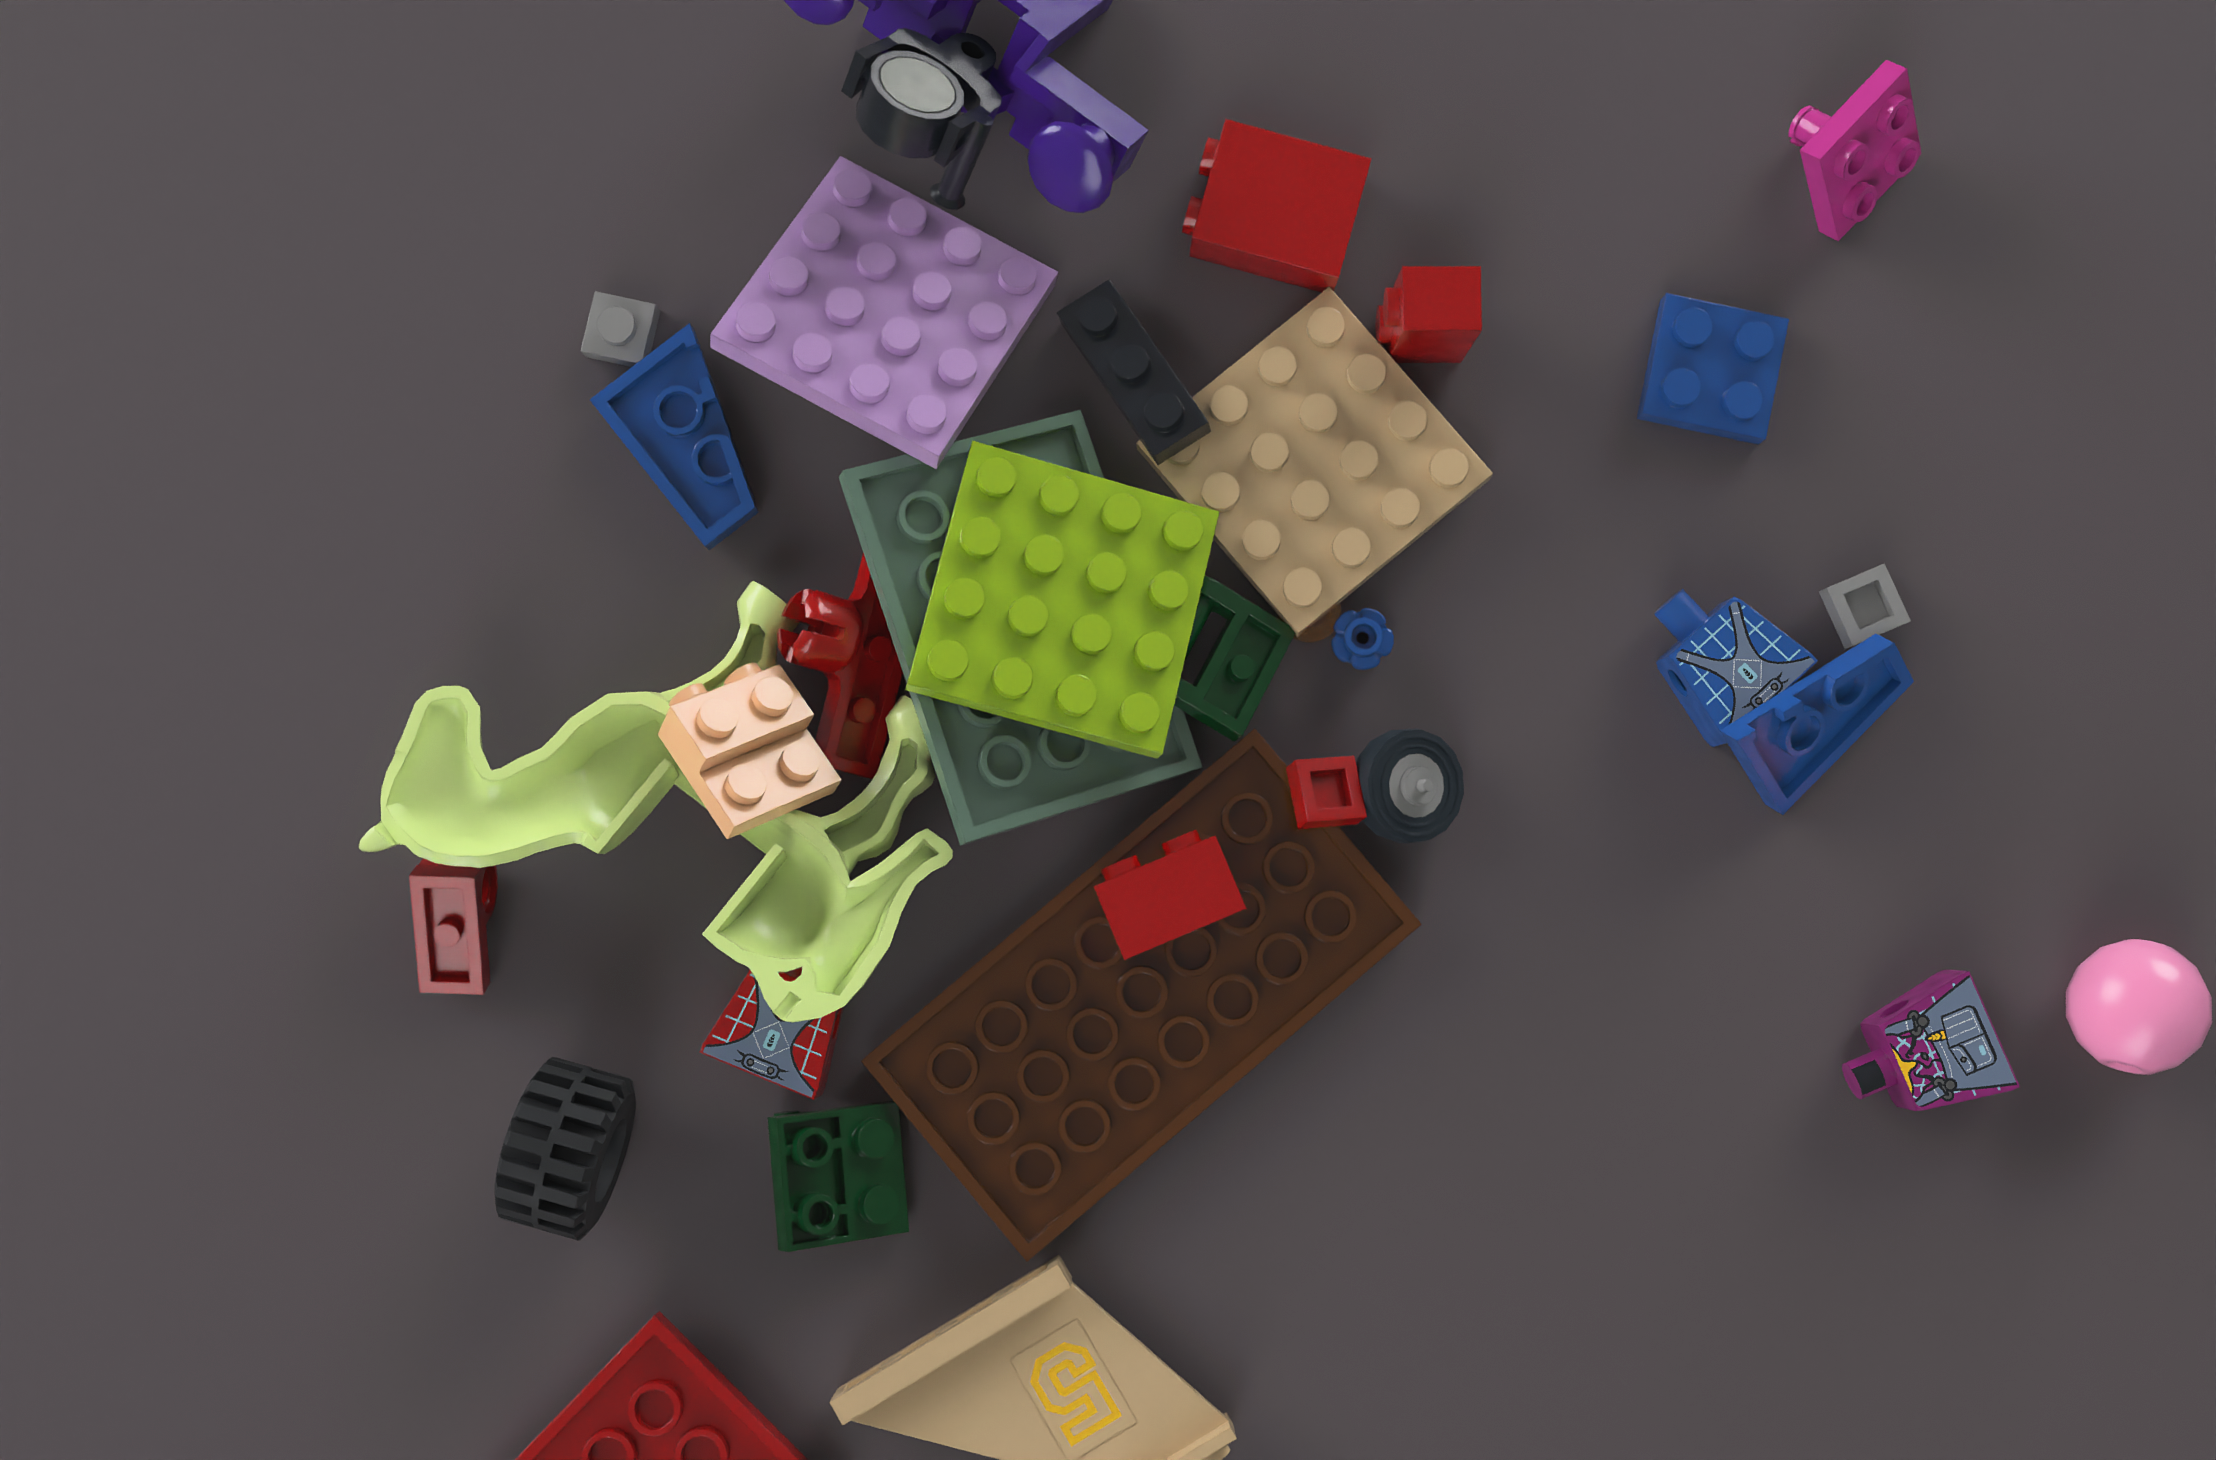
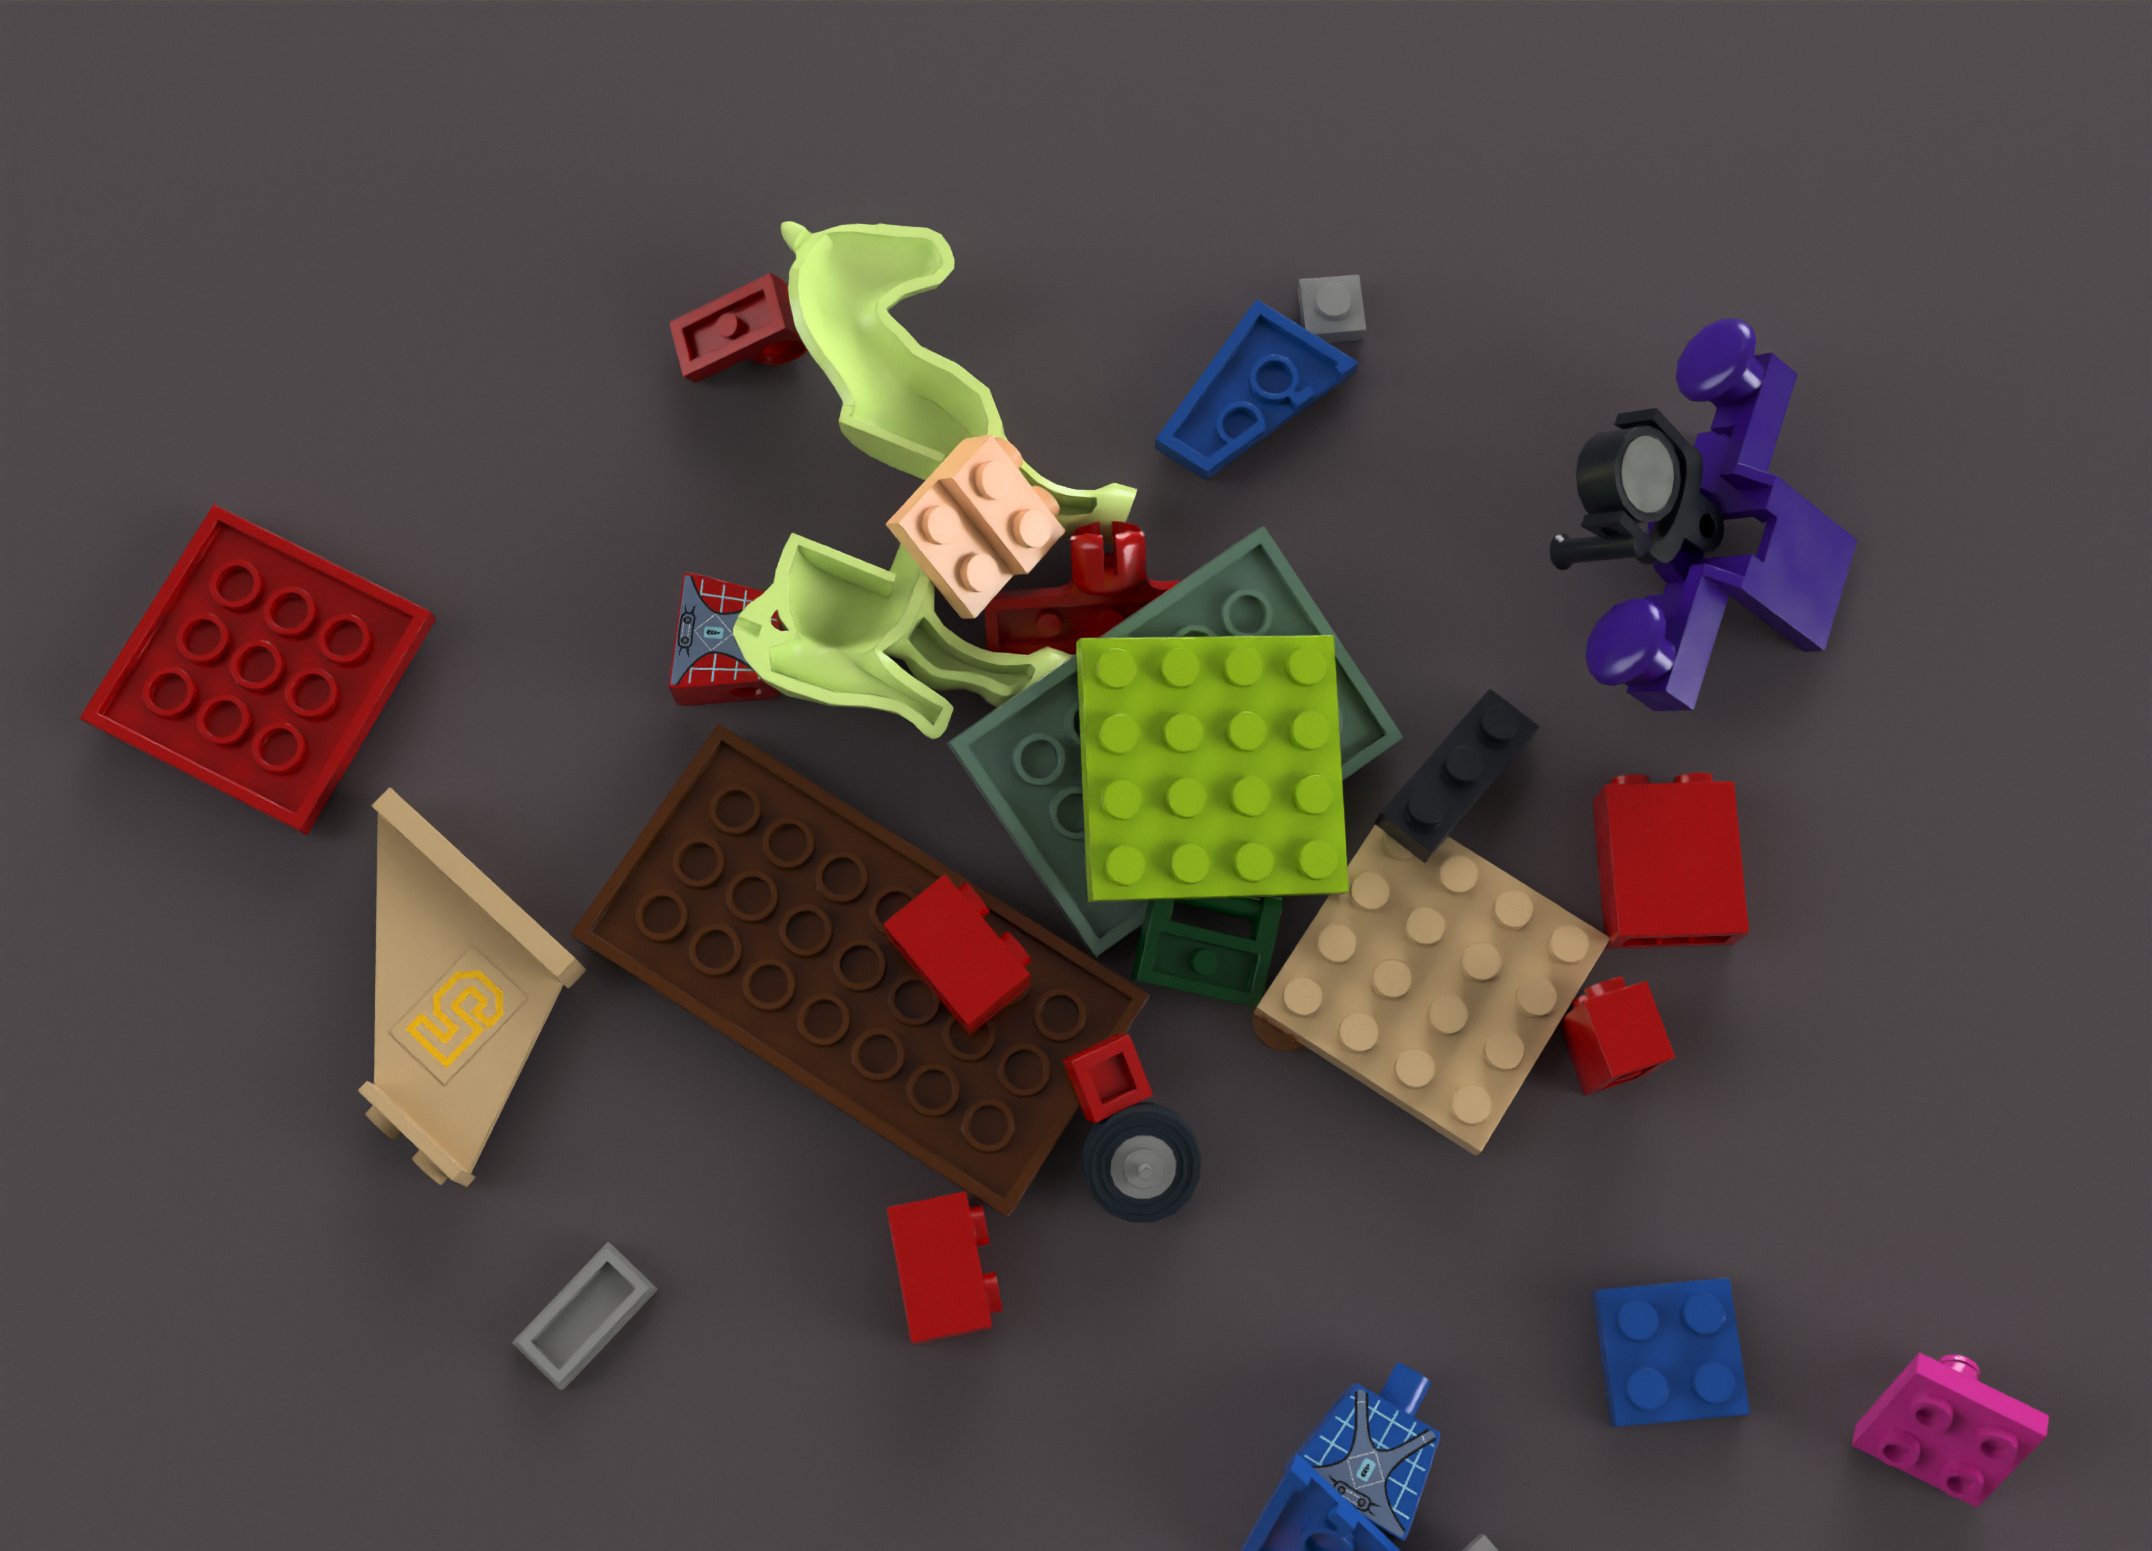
camera: 70 degrees right, 10 degrees down
(565, 1148) = (562, 480): black tyre -> none
(837, 1175) = (604, 735): dark green plate -> none
(885, 311) = (1431, 529): lavender plate -> none
(1362, 655) = (1273, 1094): blue plate -> none
(1389, 1343) = (585, 1316): none -> light grey tile
(1449, 999) = (942, 1268): none -> red brick

